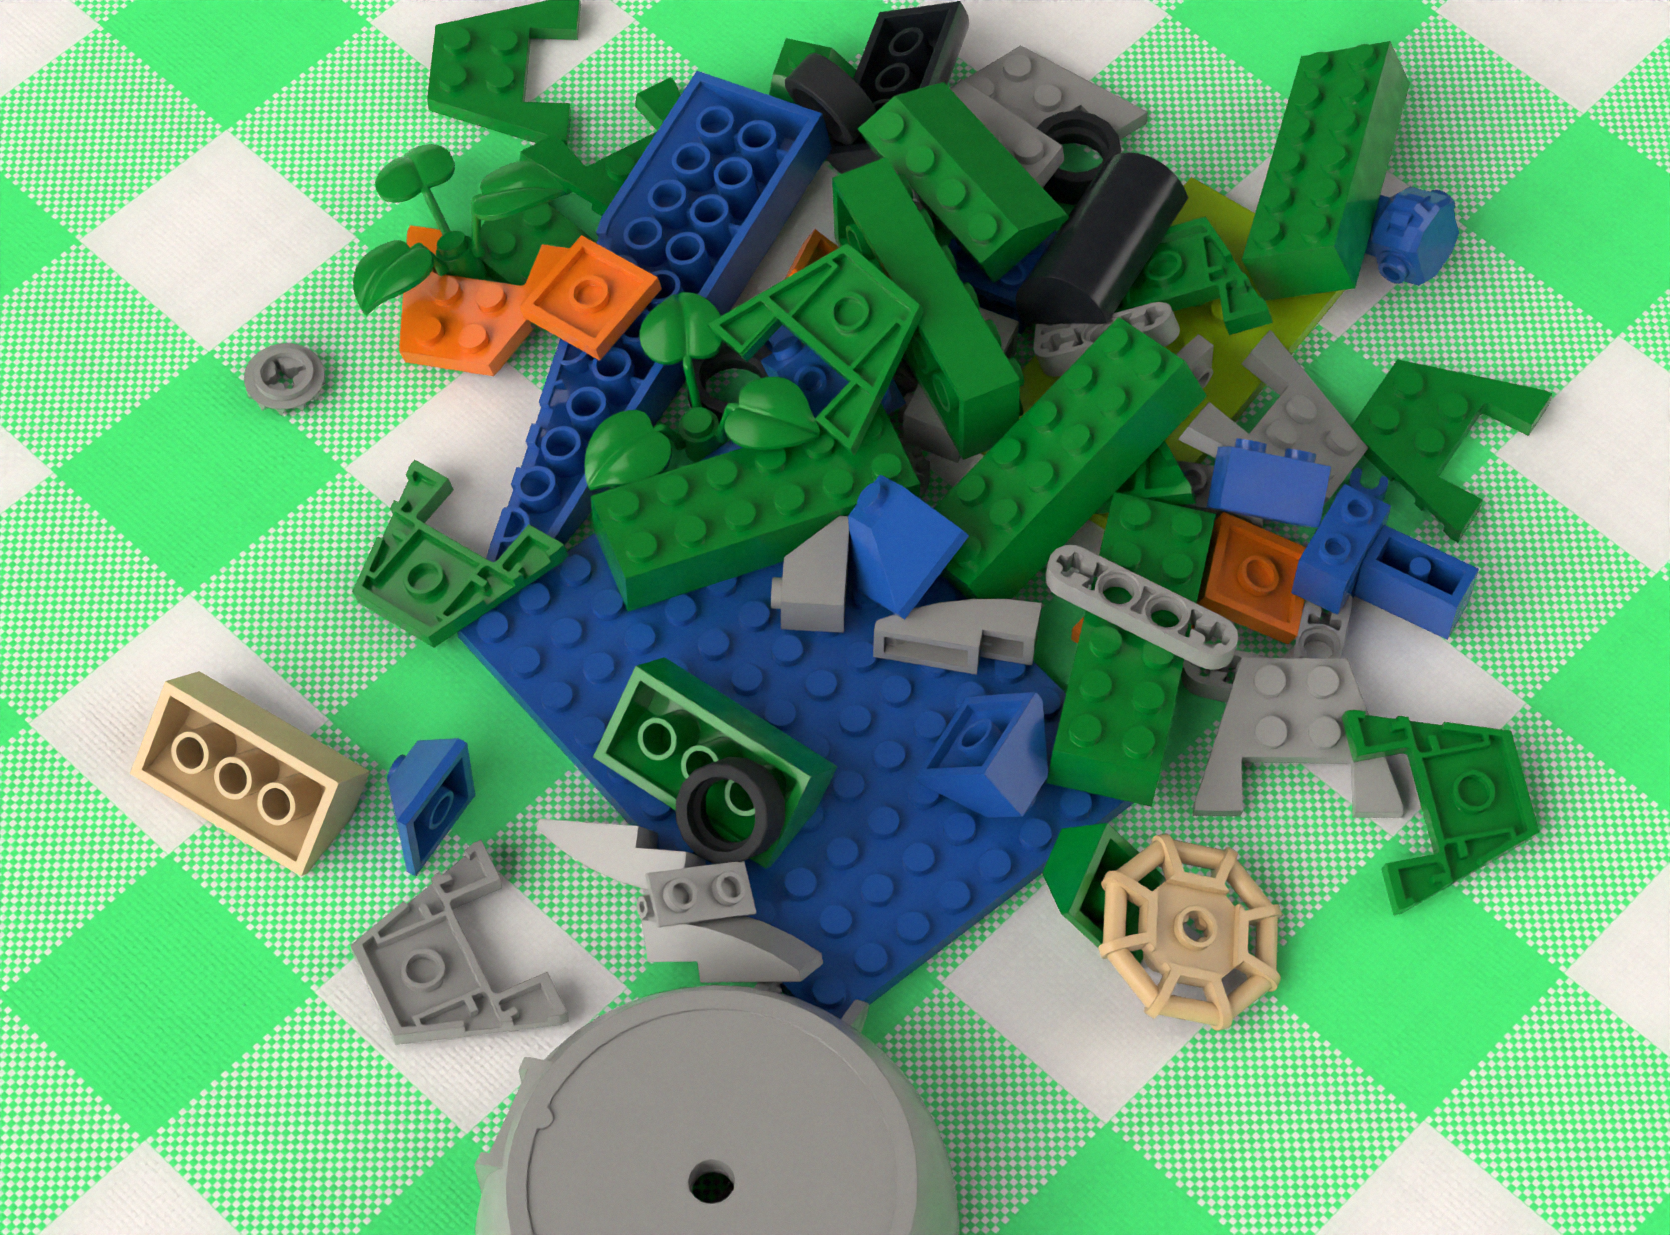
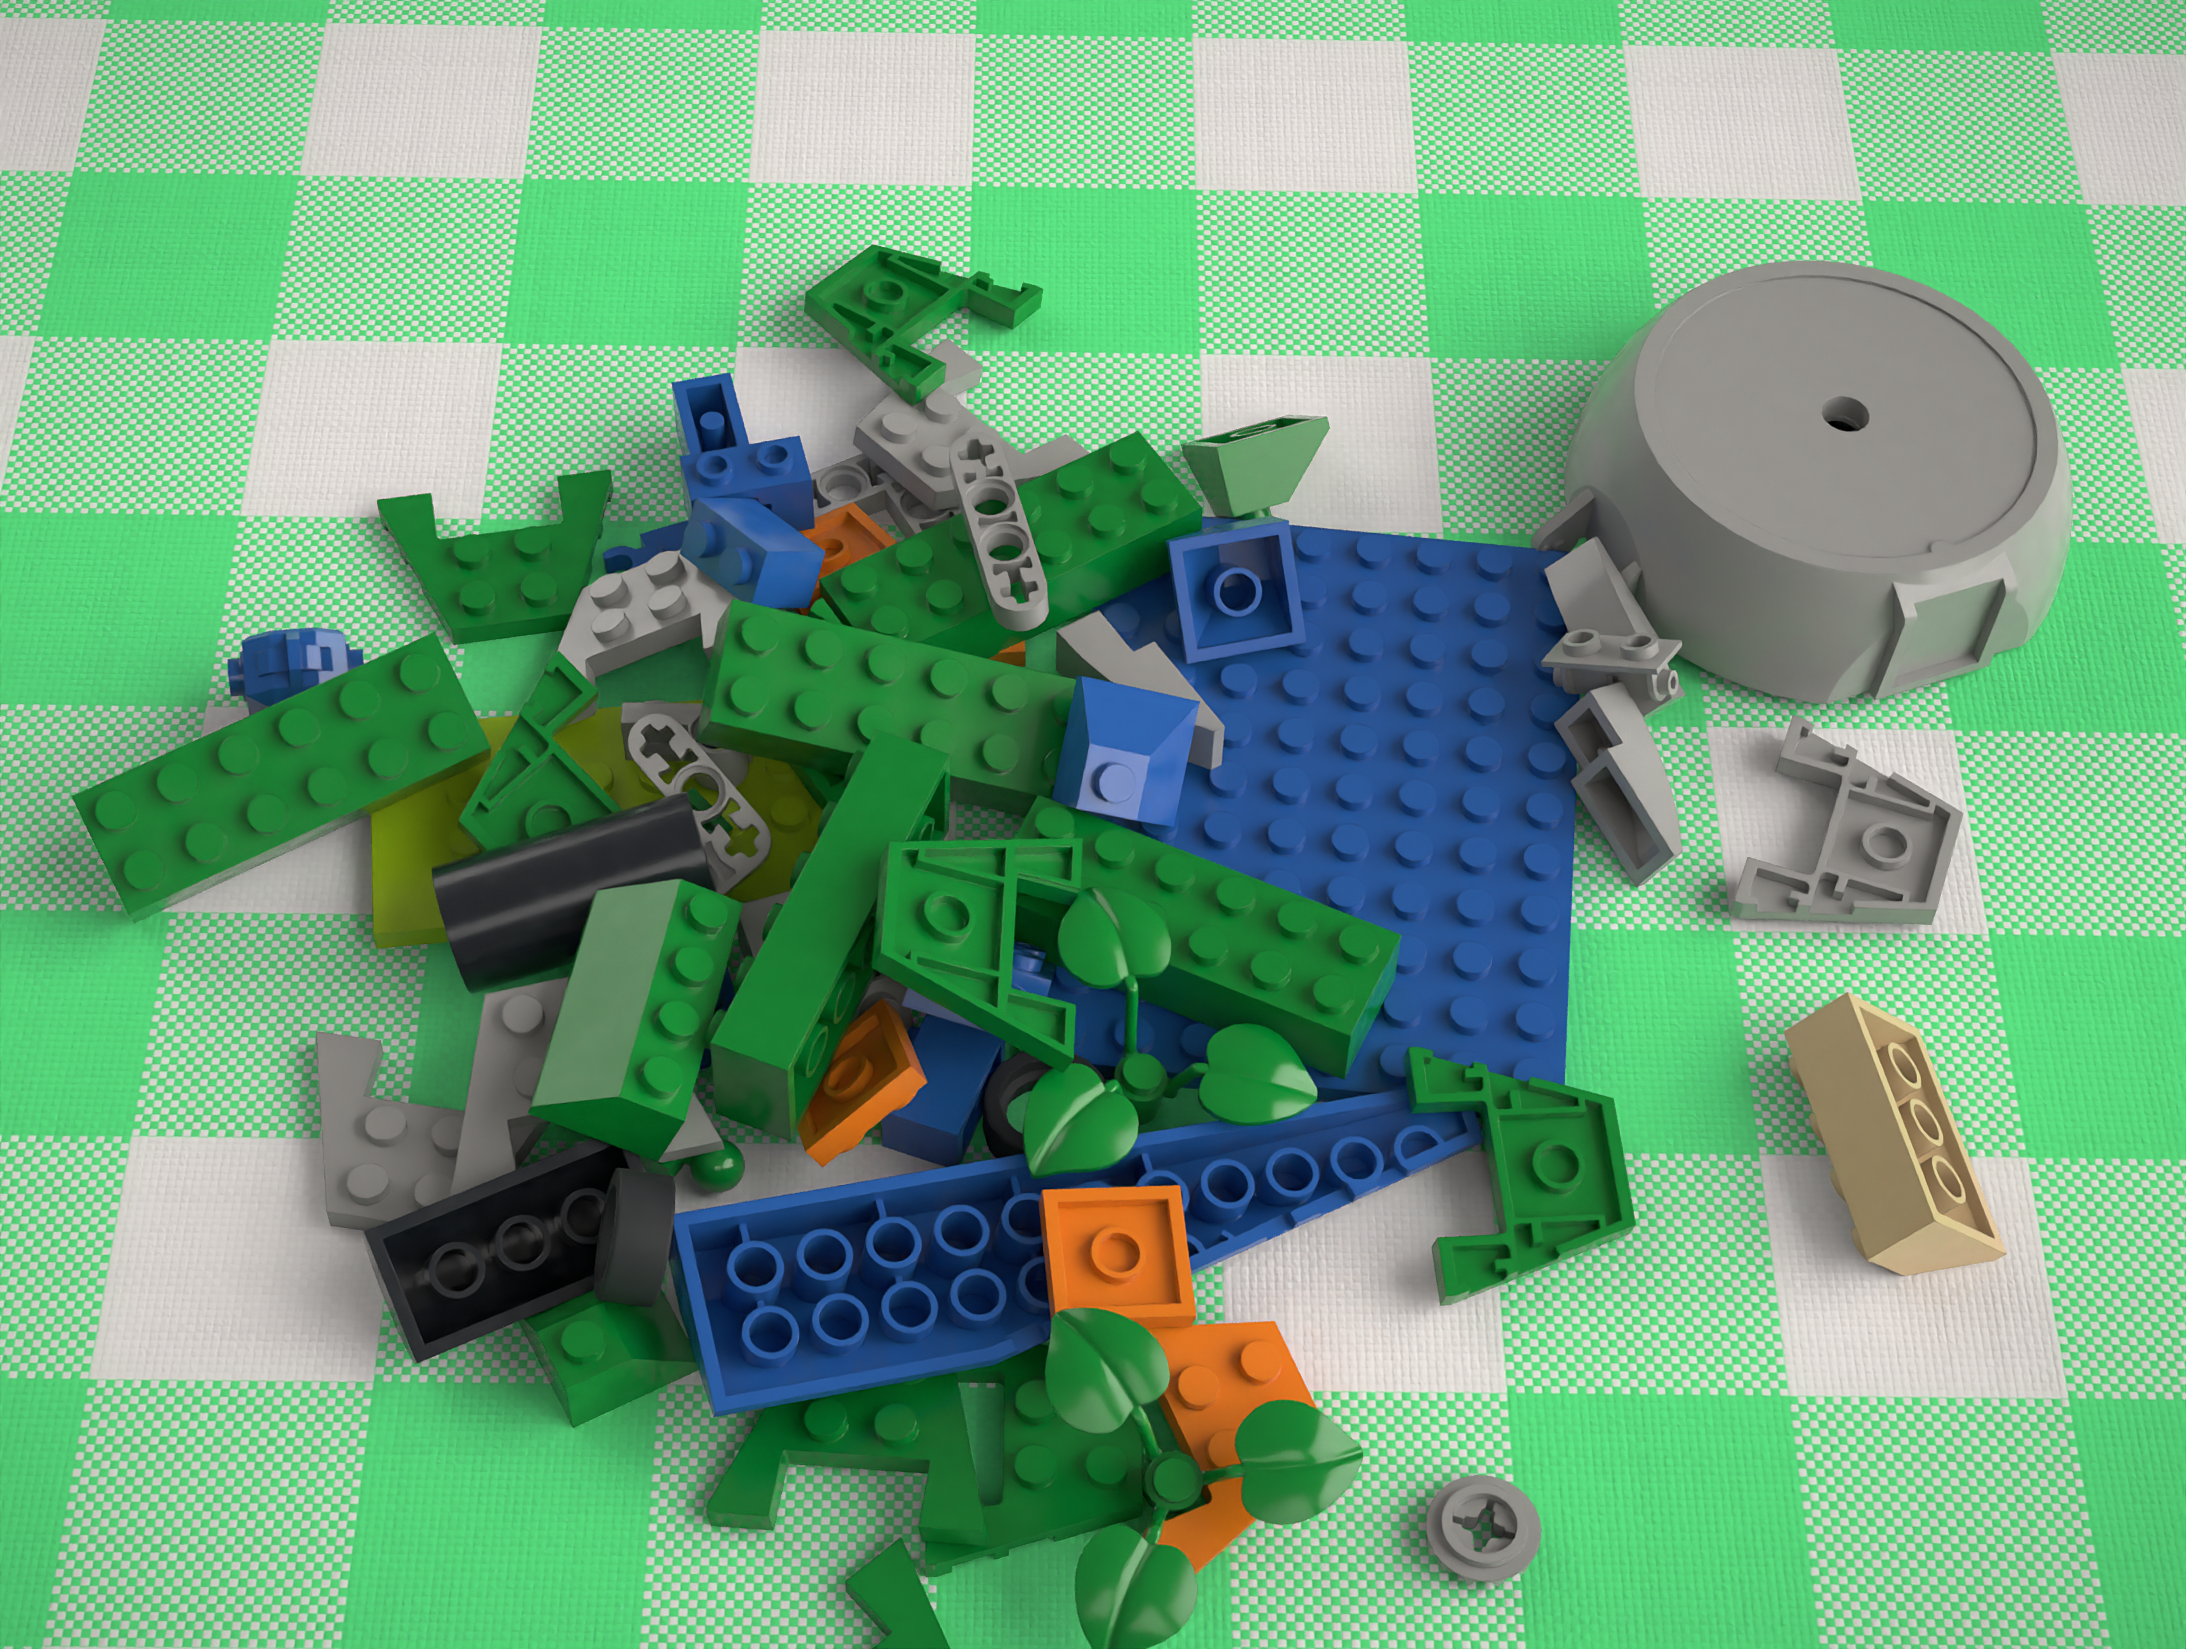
camera: 135 degrees left, 5 degrees down
(429, 795) = (1754, 956): blue slope -> none
(679, 723) = (1468, 769): green slope -> none
(696, 826) = (1515, 693): black tyre -> none
(815, 581) = (1218, 822): light grey slope -> none
(1081, 129) = (407, 1019): black tyre -> none
(1169, 948) = (1226, 372): tan plate -> none

